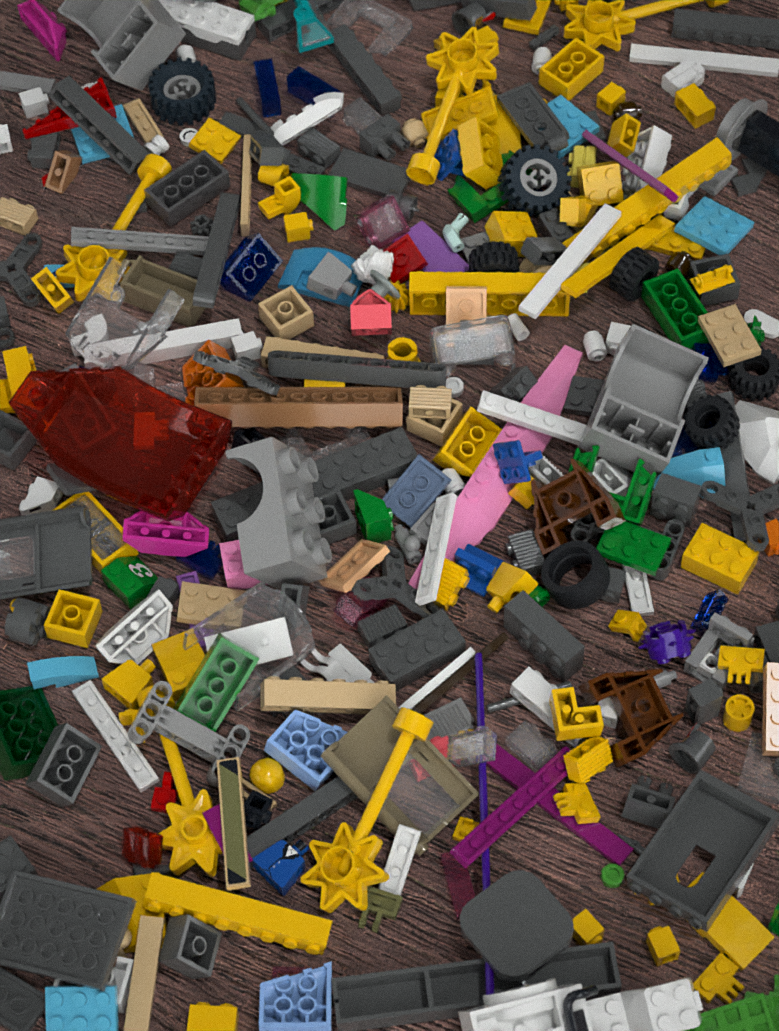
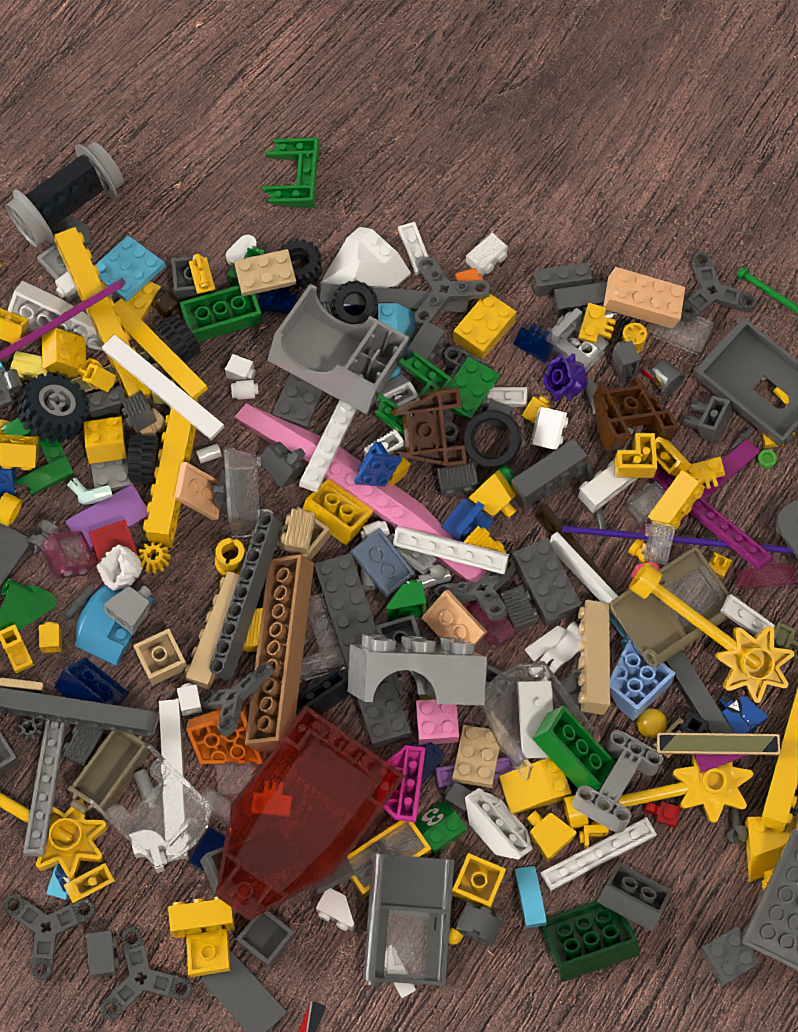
camera: 85 degrees left, 10 degrees up
(142, 846) = (720, 831): clear red brick -> none
(339, 245) = (79, 601): none -> dark grey bar
(371, 311) = (179, 578): coral piece -> none
(450, 719) = (614, 567): light grey window -> none
(528, 765) = (677, 500): none -> yellow brick
(599, 630) = (549, 428): none -> white slope

